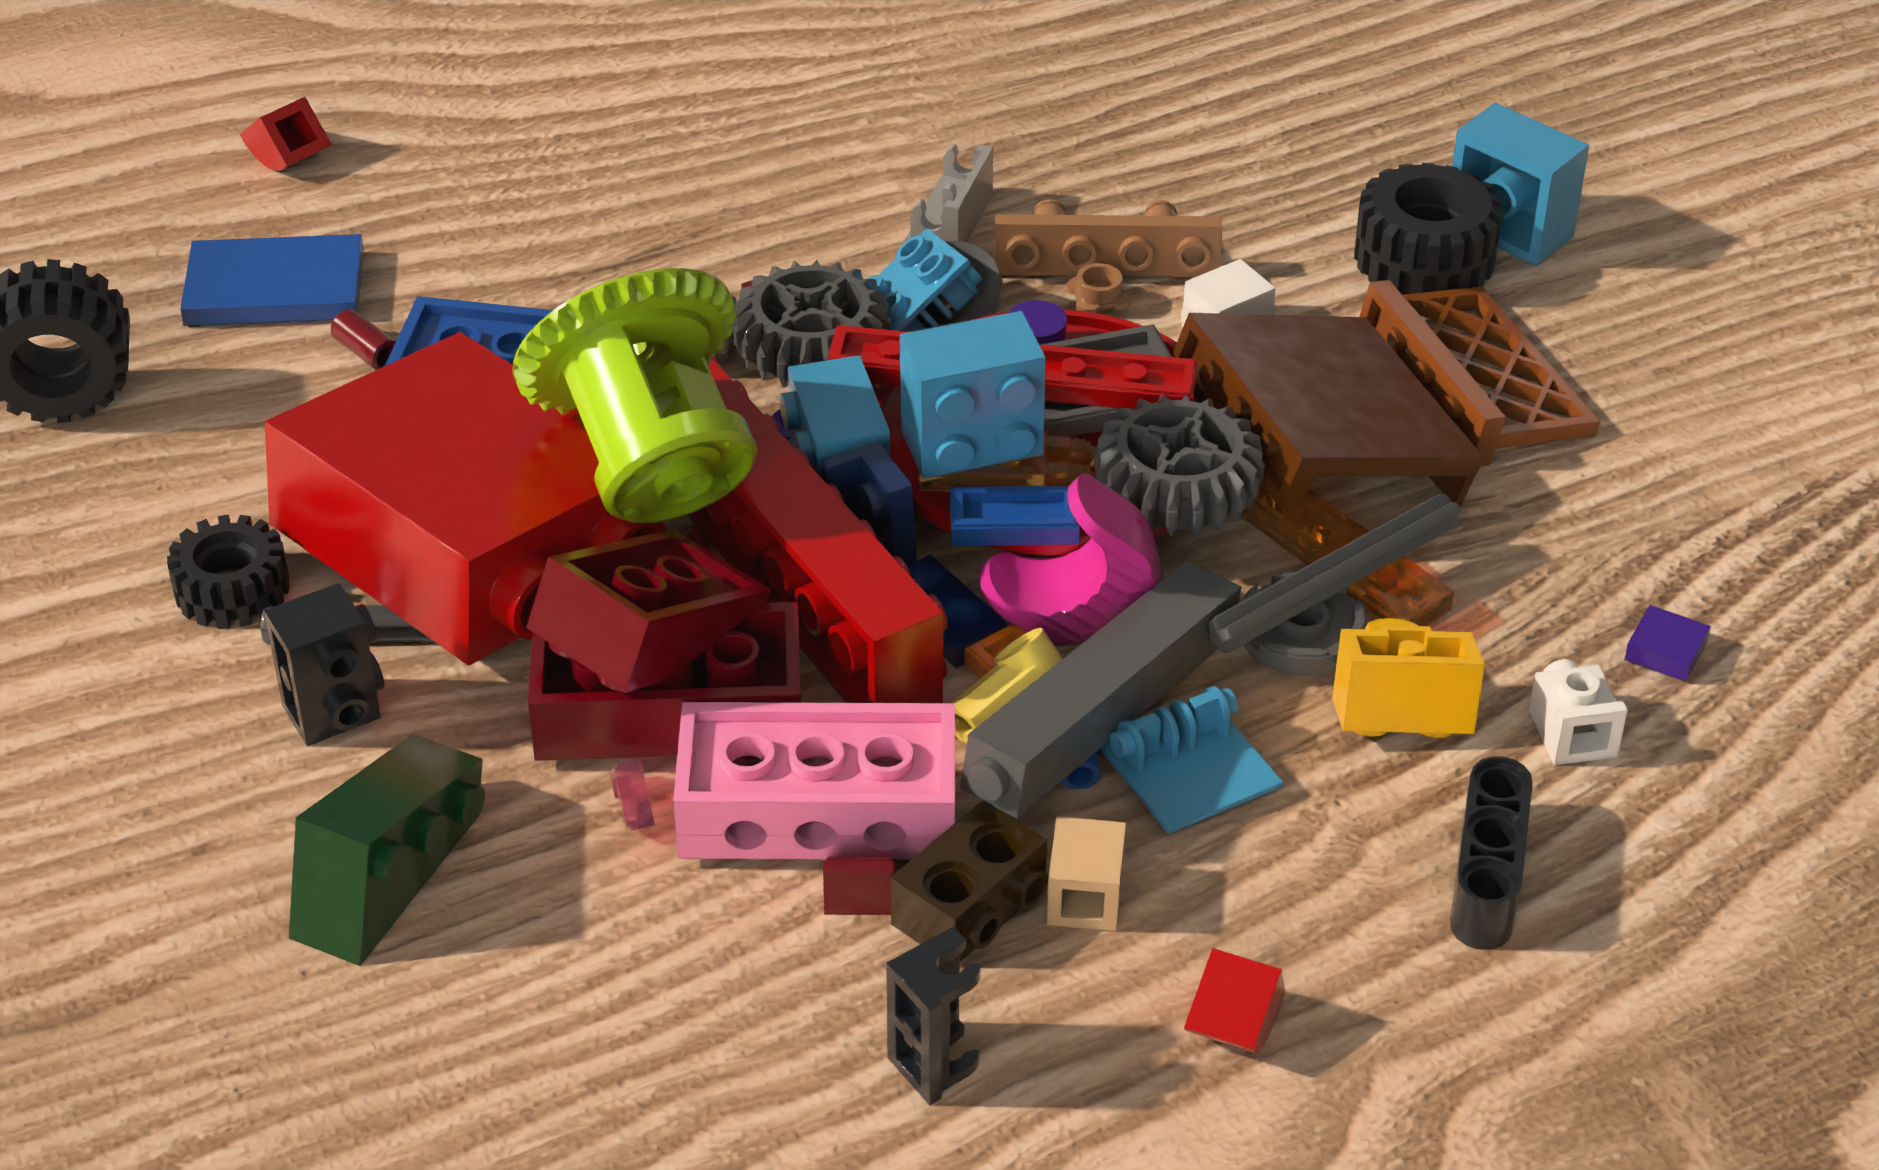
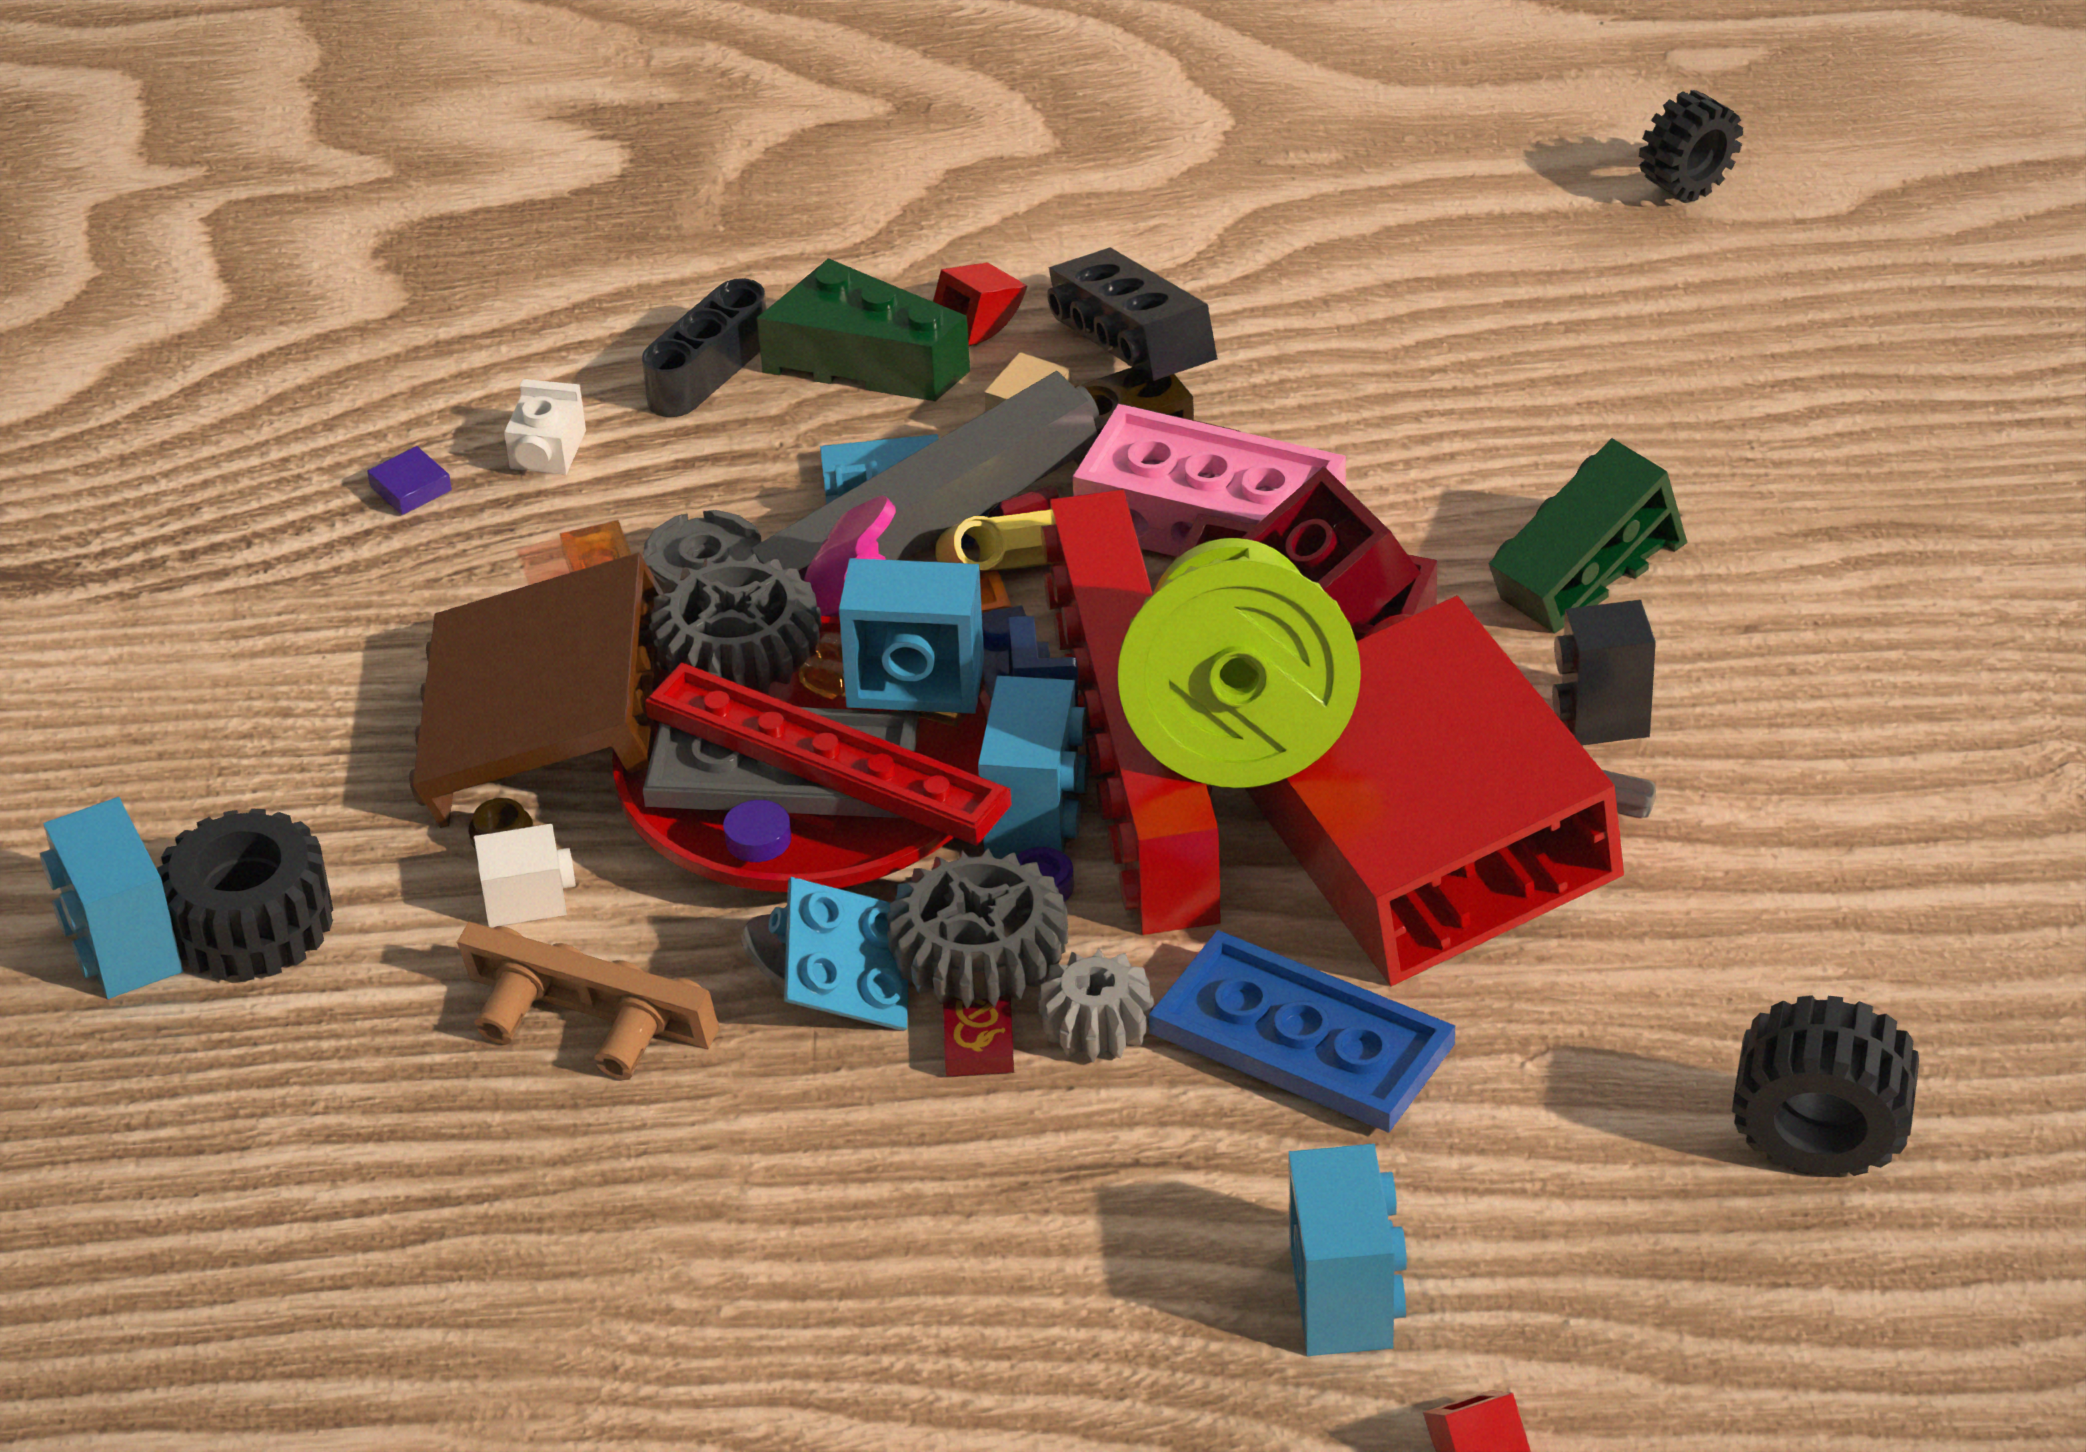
camera: 155 degrees left, 0 degrees up
(222, 547) = (1683, 821): black tyre -> none
(272, 279) = (1547, 1229): blue tile -> none
(362, 338) = (1462, 1101): dark red piece -> none
(414, 177) = (1345, 1249): none -> dark azure brick
(925, 1014) = (1222, 286): black hinge -> none
(957, 198) = (713, 1100): light grey hinge -> none
(1020, 994) = (1132, 313): none -> black brick
(1098, 289) = (634, 943): medium nougat plate -> none
(1321, 904) = (865, 331): none -> dark green wedge
(1332, 573) = (661, 548): dark grey axle -> none
(1407, 680) = (665, 462): yellow brick -> none
(1455, 379) = (377, 754): dark orange fence -> none

